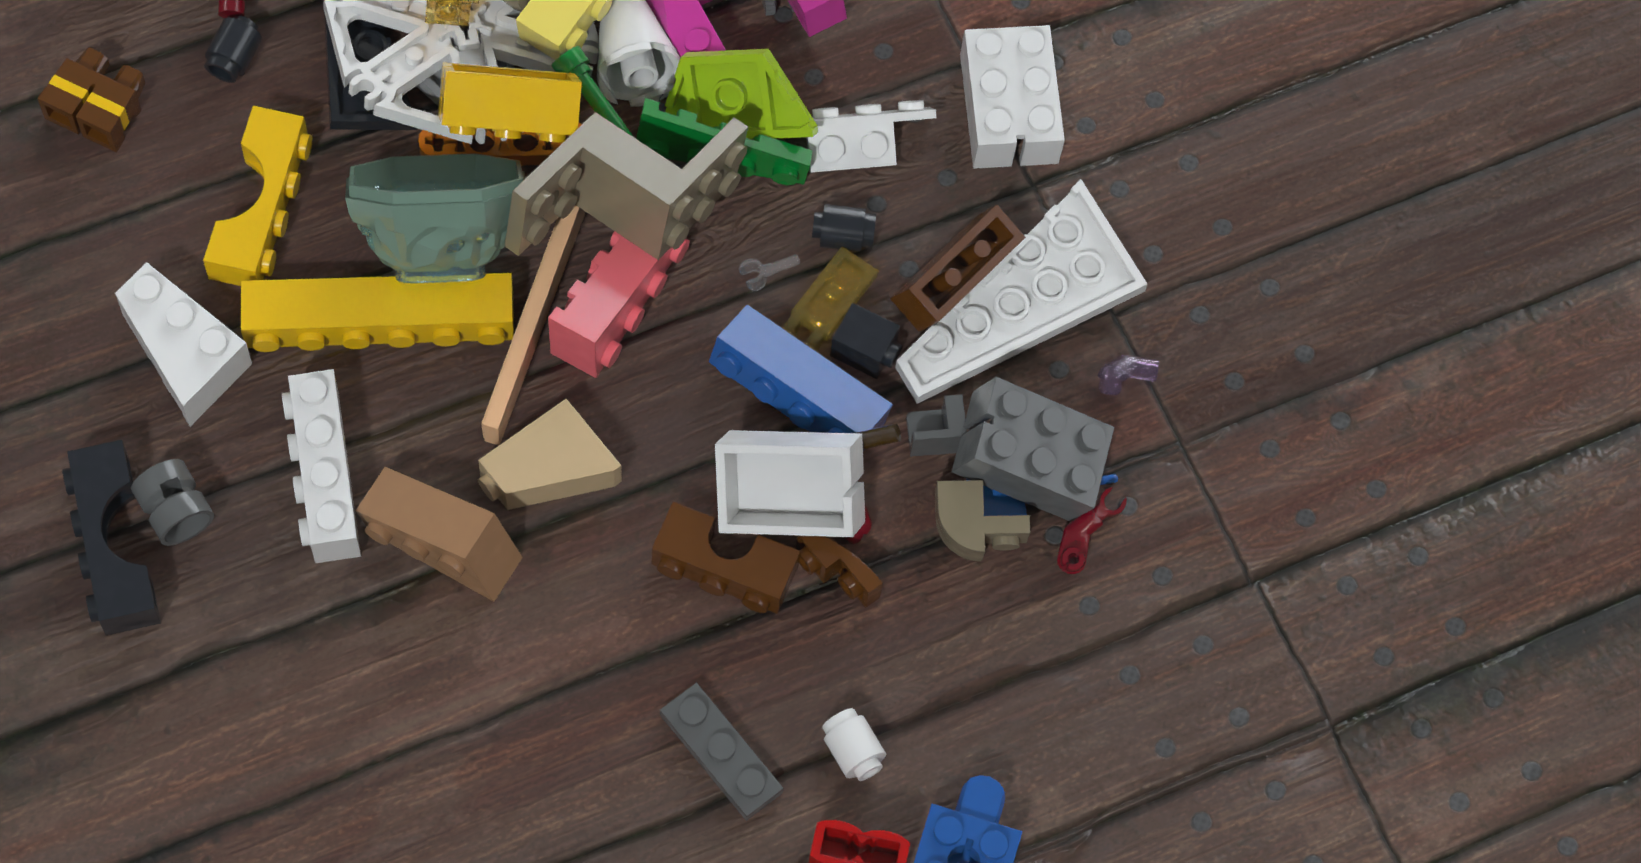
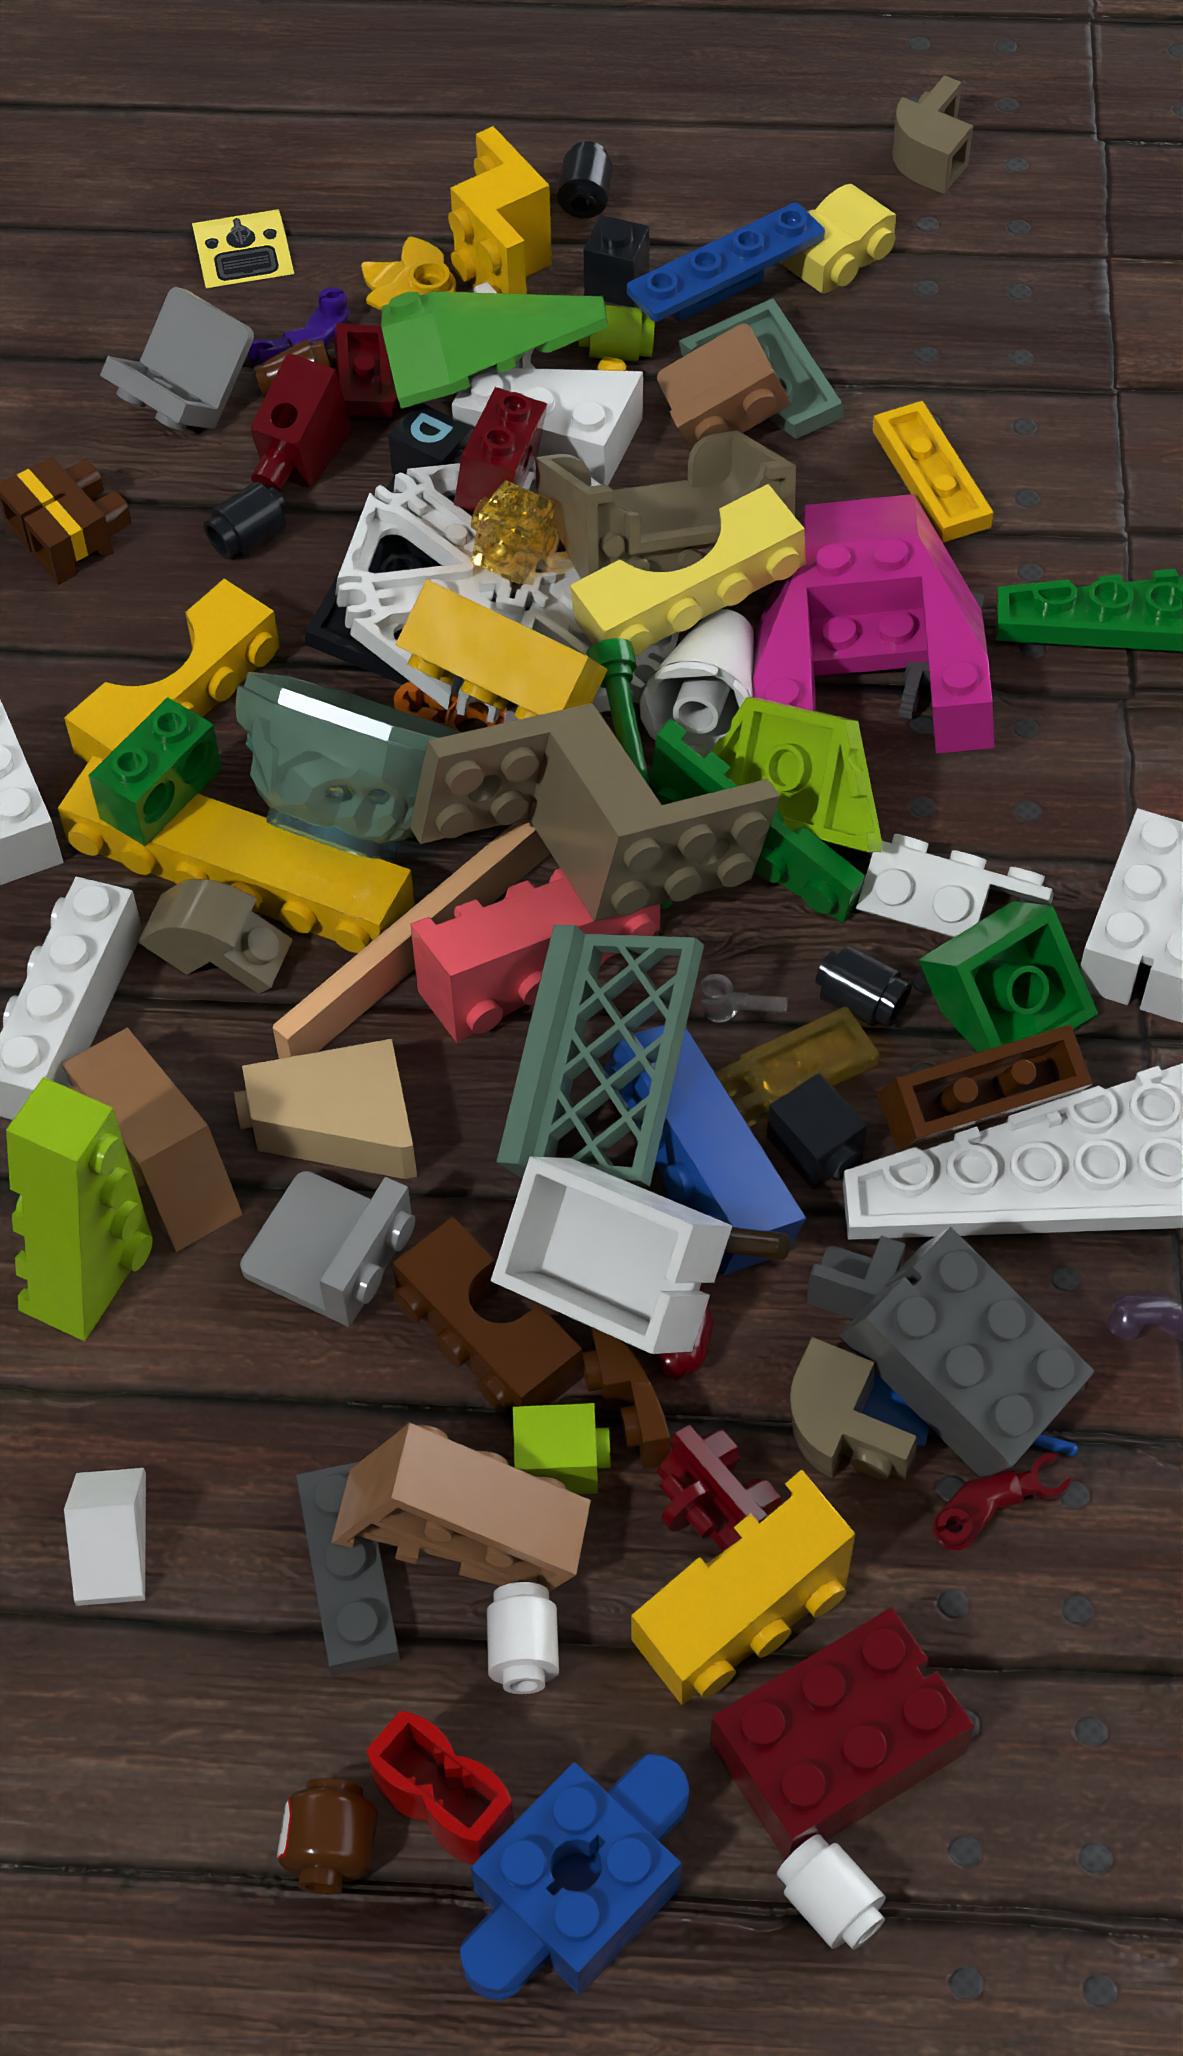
camera: 35 degrees right, 10 degrees down
(304, 277) = (155, 771): none -> green brick
(395, 369) = (215, 924): none -> dark tan brick
(440, 609) = (73, 1208): none -> lime wedge
(563, 800) = (107, 1536): none -> white slope
(596, 553) = (330, 1244): none -> light grey bracket
(678, 361) = (555, 1038): none -> sand green fence
(779, 684) = (463, 1508): none -> medium nougat wedge
(813, 620) = (561, 1444): none -> lime brick
(919, 605) = (705, 1490): none -> dark red hips
(934, 184) = (1009, 977): none -> green slope
(975, 657) = (747, 1594): none -> yellow wedge
(1068, 715) = (840, 1733): none -> dark red piece
(1108, 807) = (832, 1893): none -> white brick

